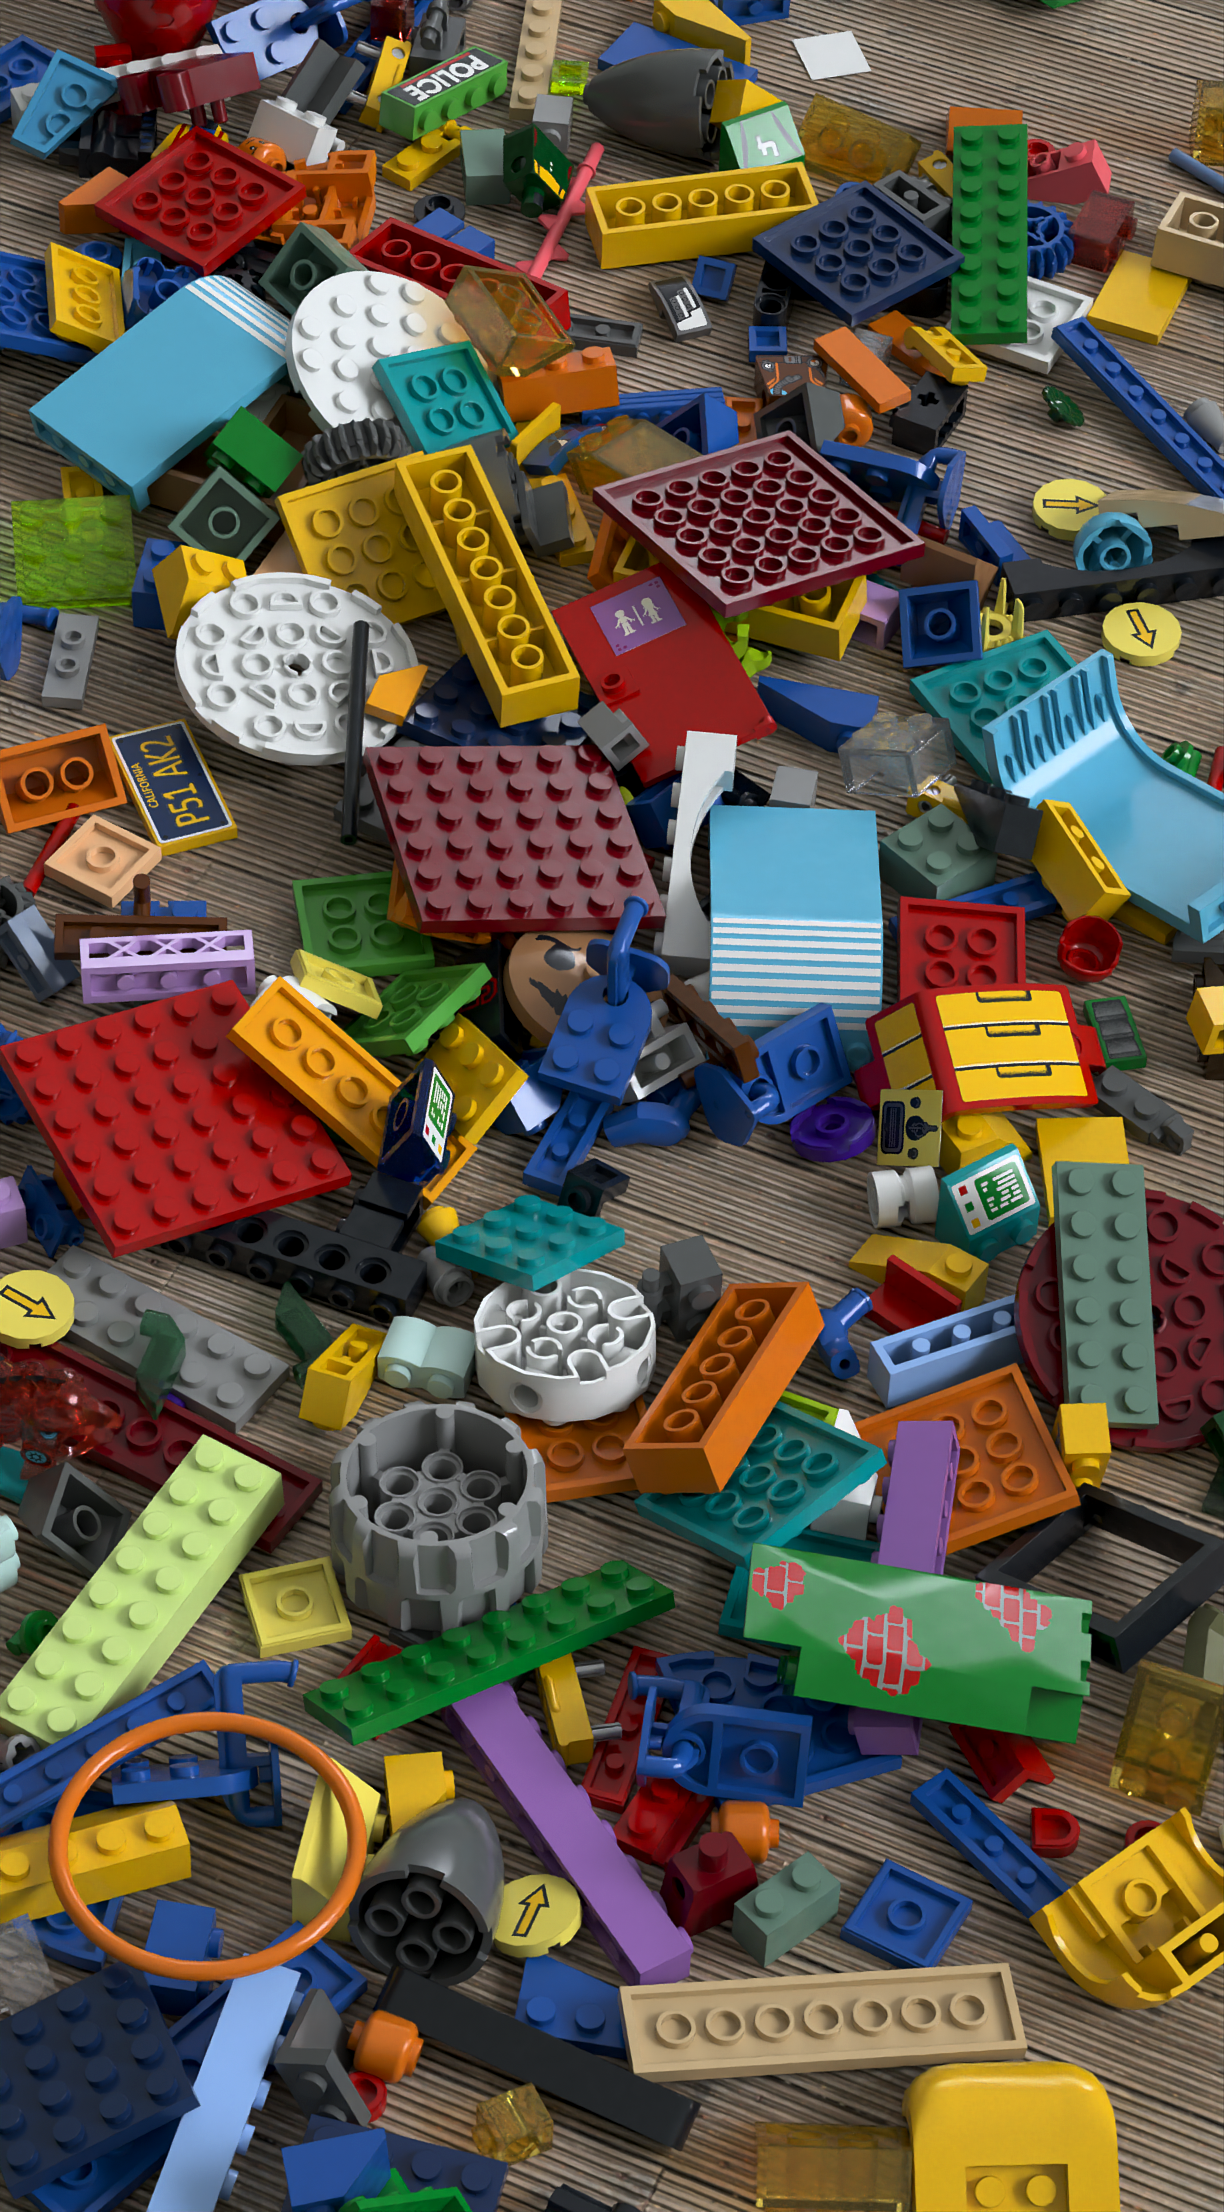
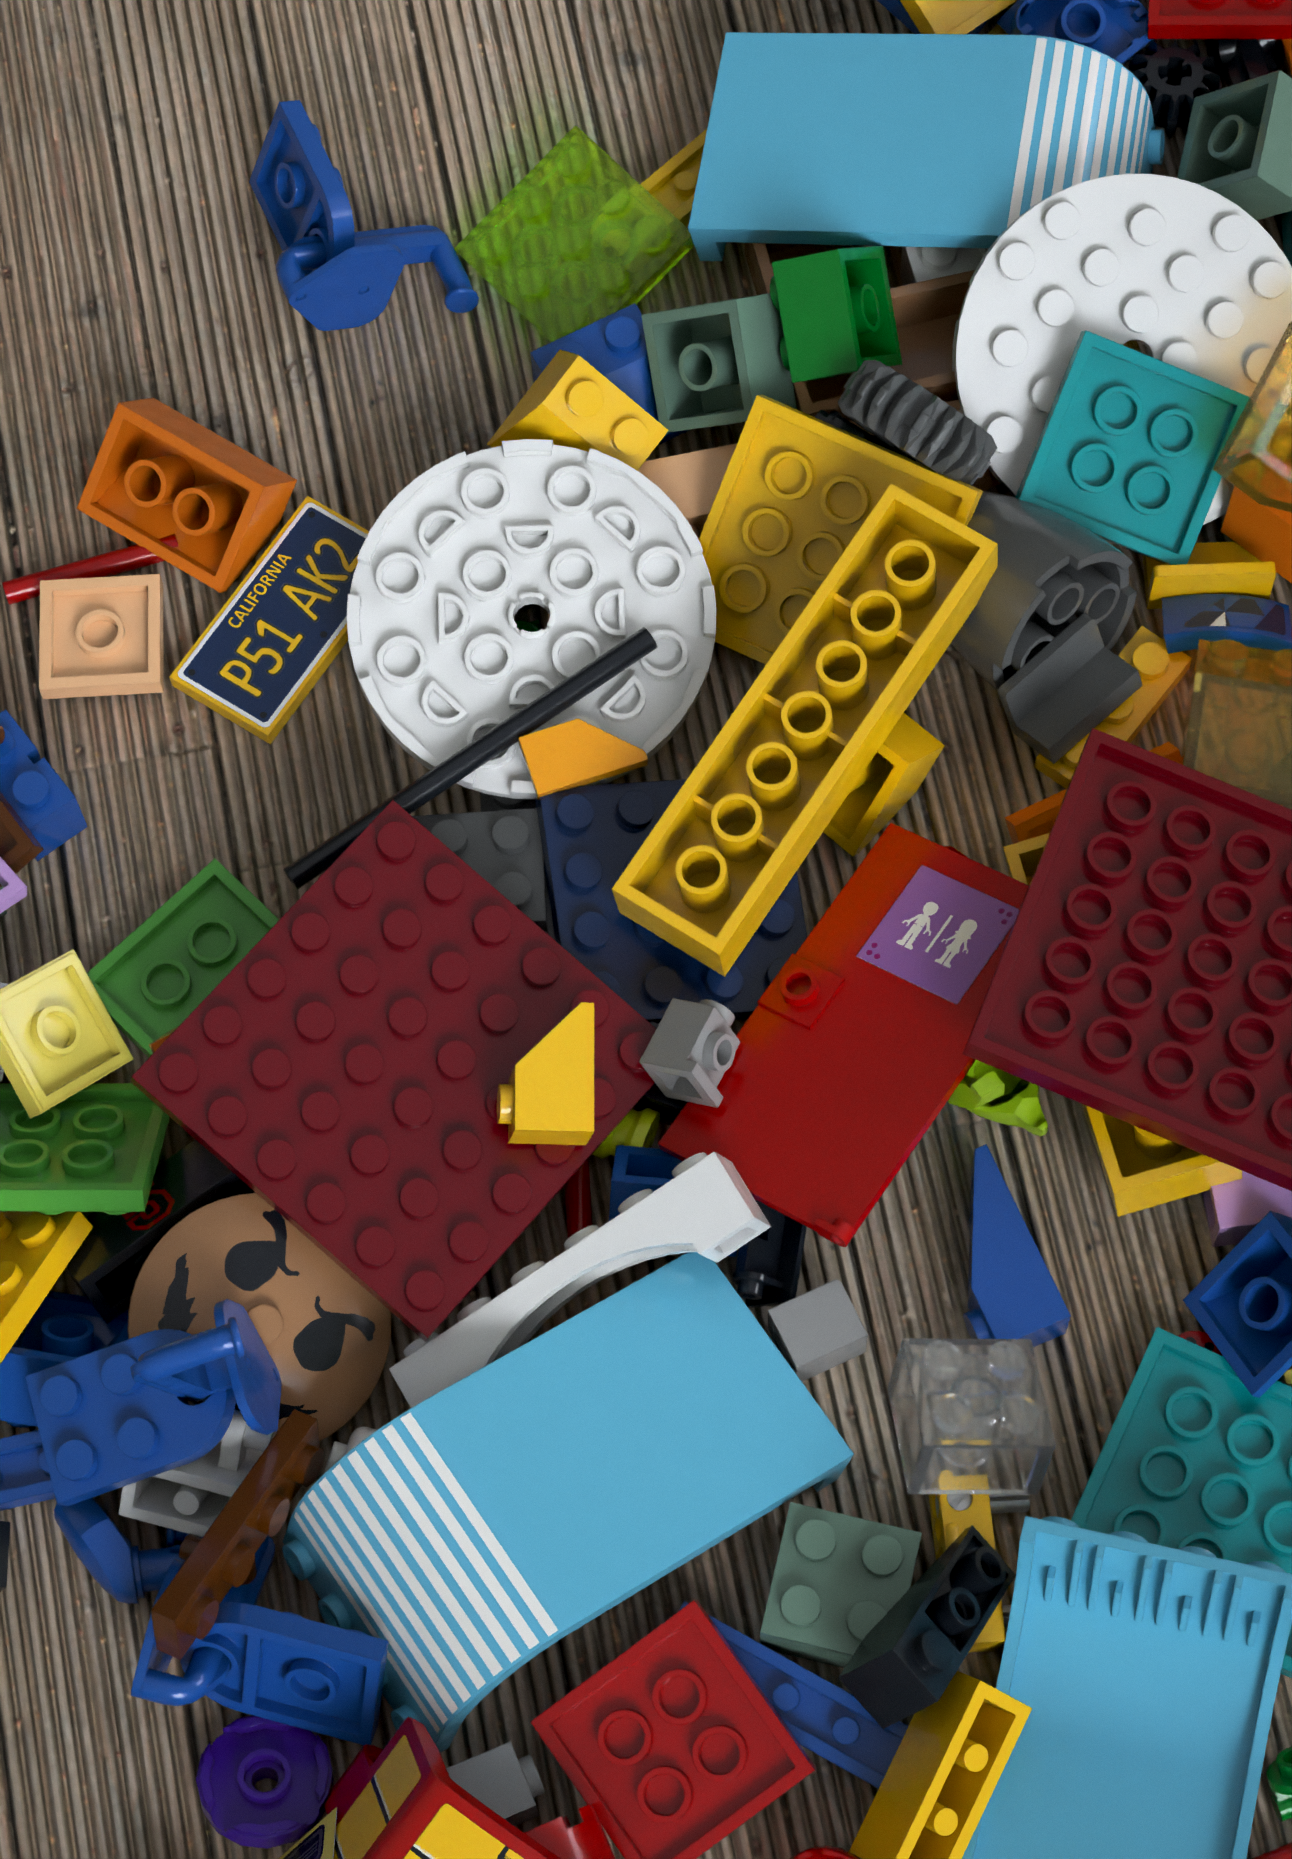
camera: 60 degrees right, 20 degrees up
(70, 661) = (411, 368): light grey plate -> none
(587, 776) = (553, 1086): none -> yellow slope

